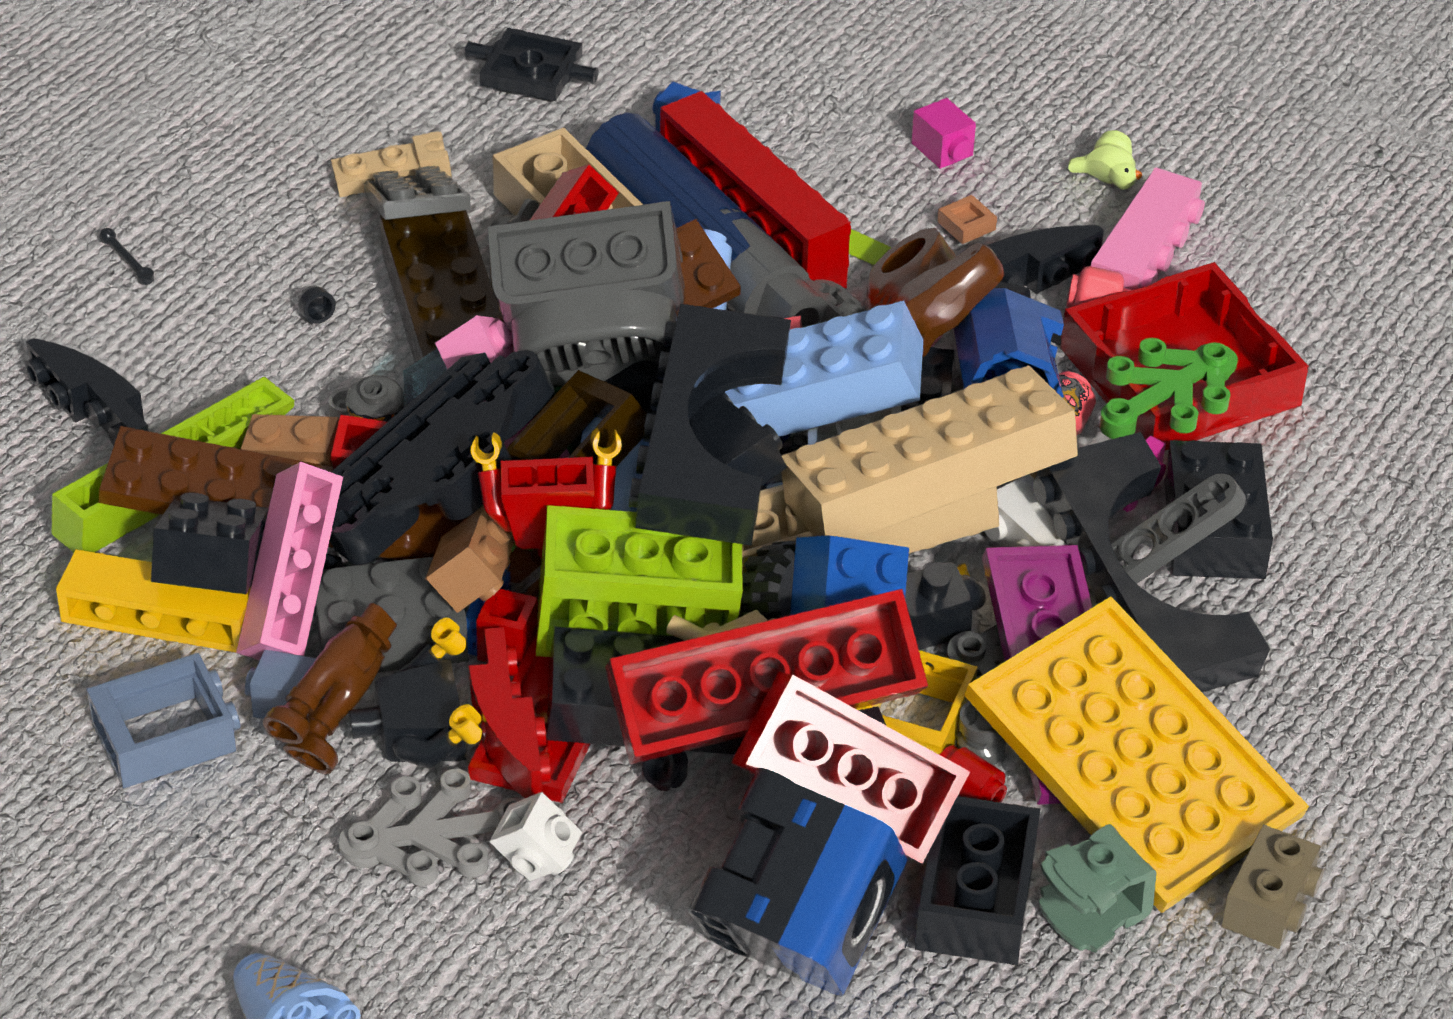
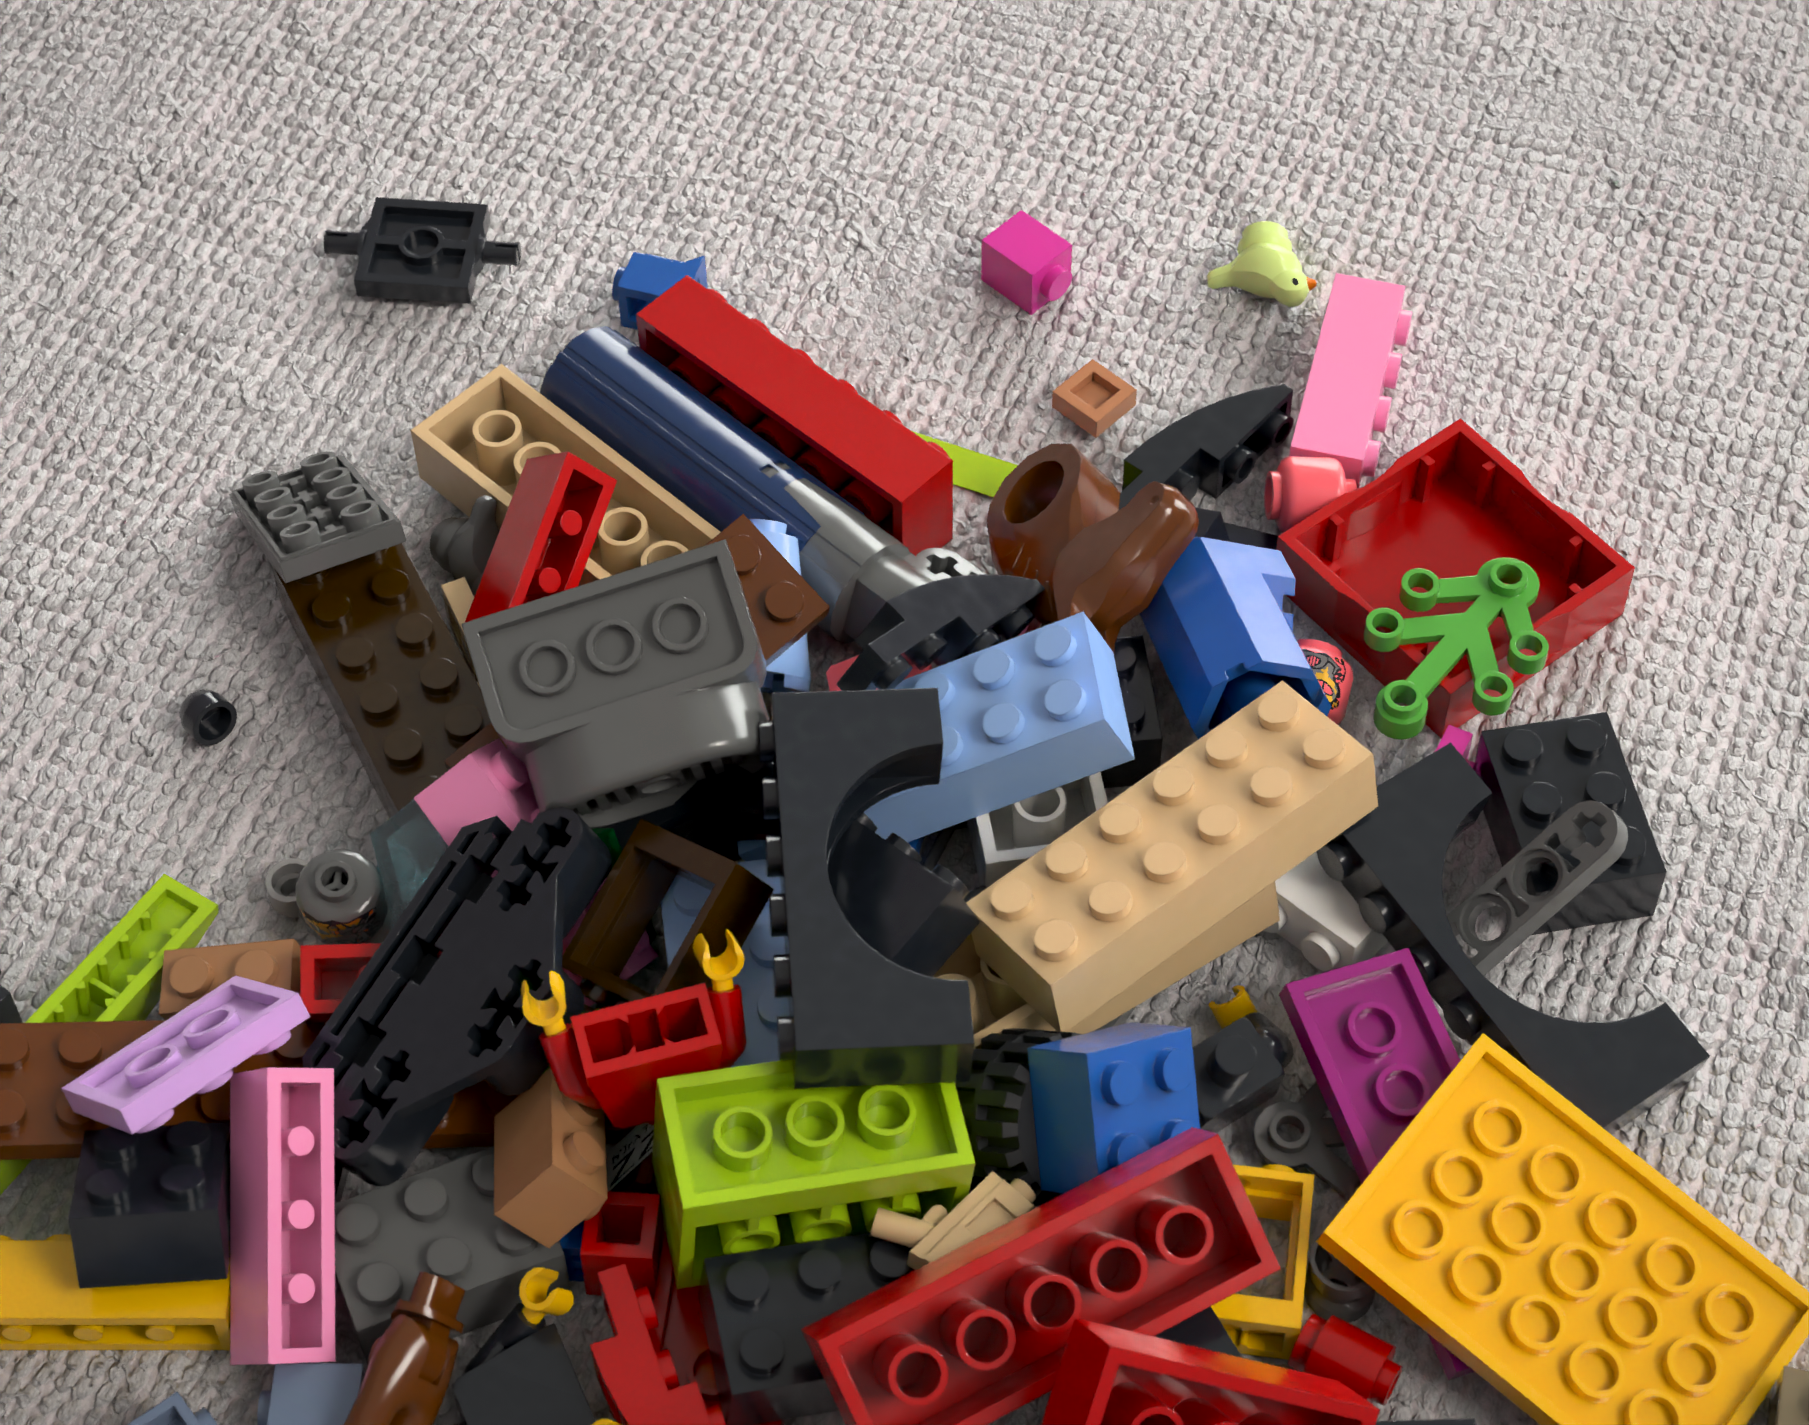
camera: 10 degrees left, 10 degrees up
(253, 458) = (186, 1055): none -> lavender plate
(356, 169) = (272, 447): tan plate -> none
(811, 300) = (939, 626): none -> black slope

